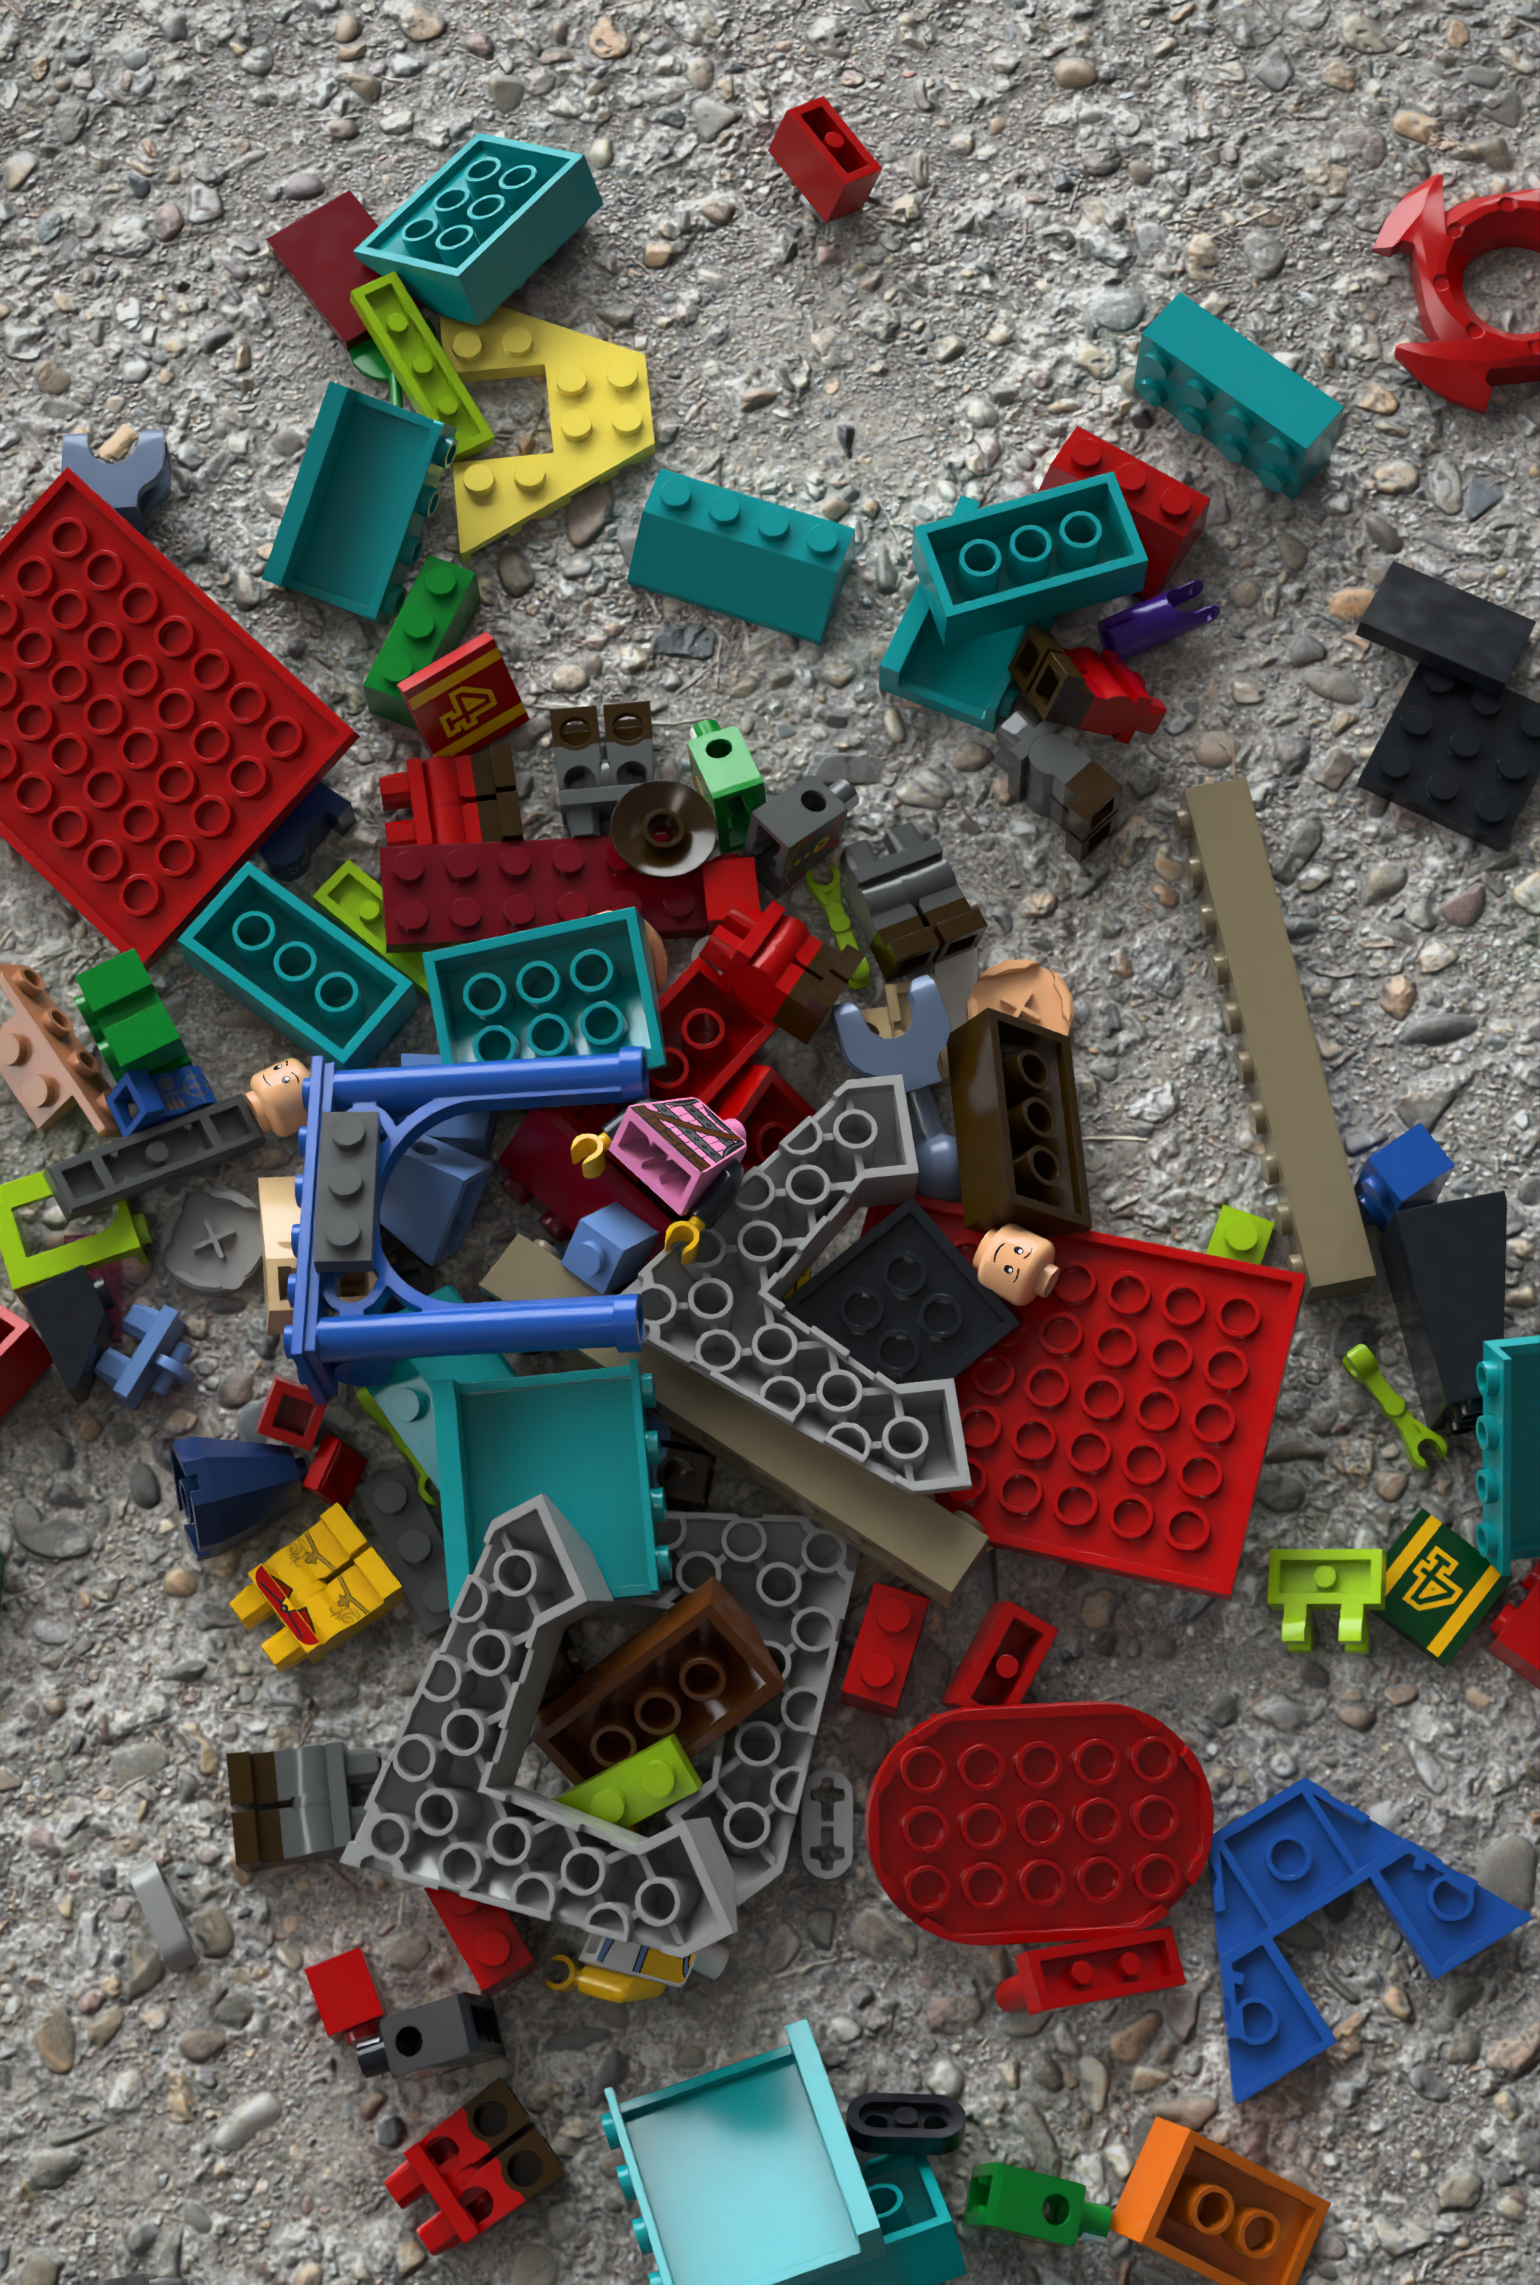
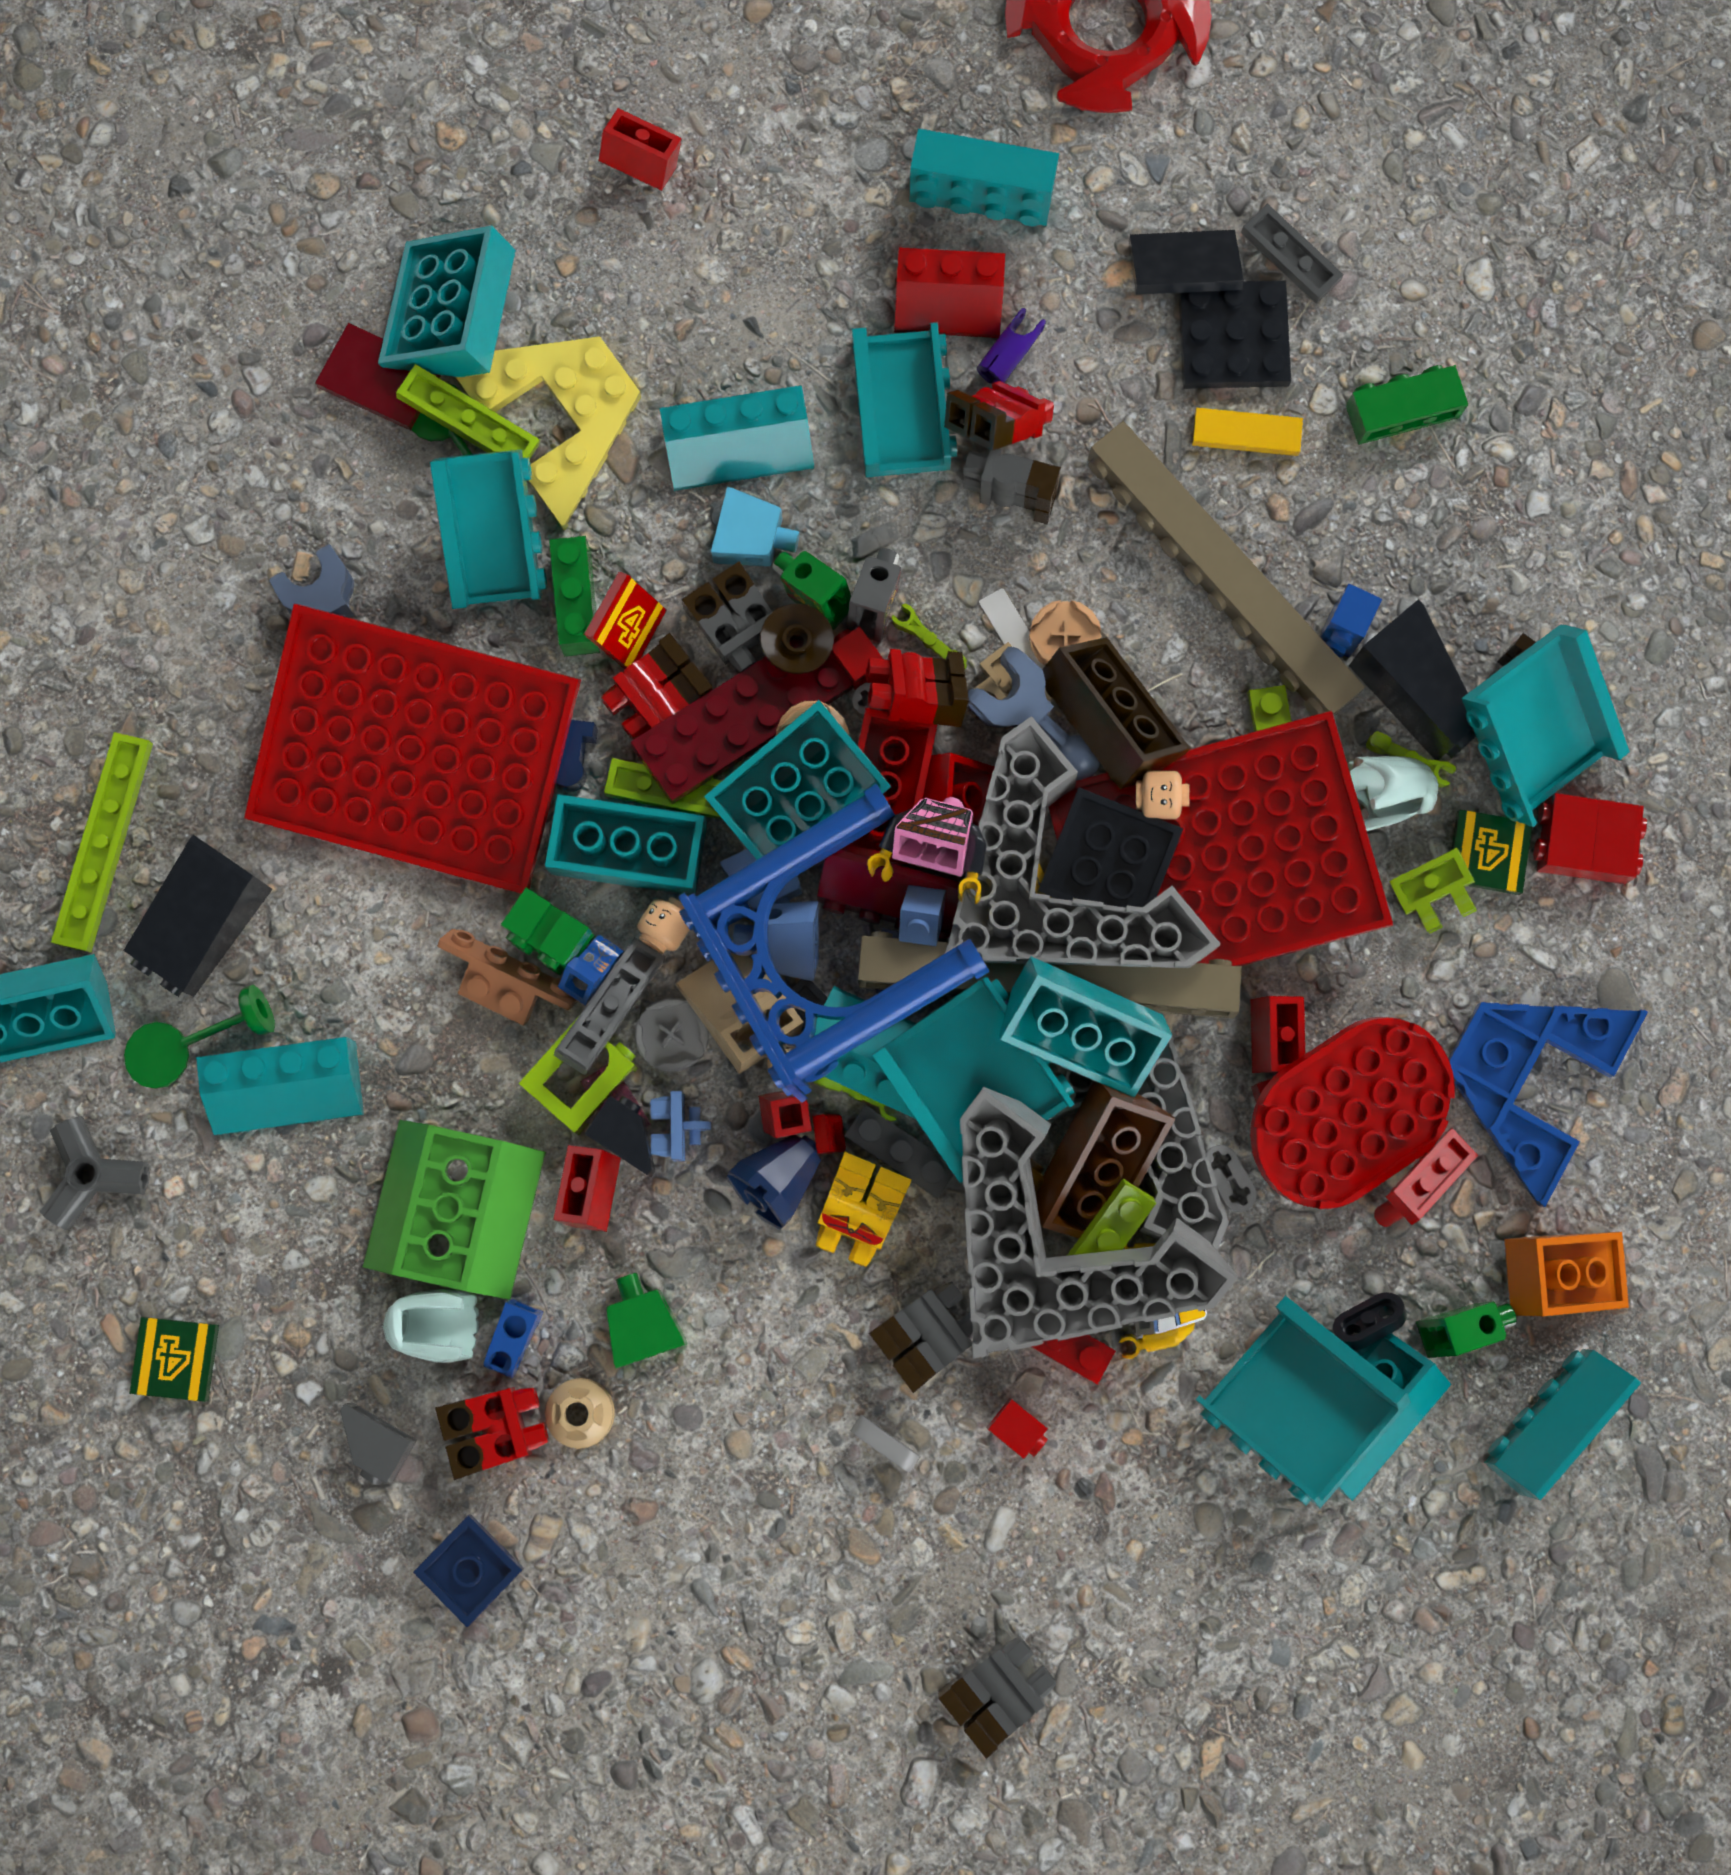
camera: 30 degrees left, 10 degrees up
(347, 1192) = (755, 969): dark grey plate -> none
(454, 2034) = (1093, 1414): black torso -> none
(466, 2186) = (1148, 1495): red hips -> none
(688, 675) = (750, 531): none -> medium azure torso
(727, 1496) = (1083, 1027): none -> teal slope
(884, 1650) = (1207, 1061): red brick -> none
(909, 903) = (966, 605): dark grey hips -> none
(1029, 558) = (923, 350): teal brick -> none
(1338, 1427) = (1393, 788): none -> light aqua hair
(1409, 879) = (1247, 431): none -> yellow tile

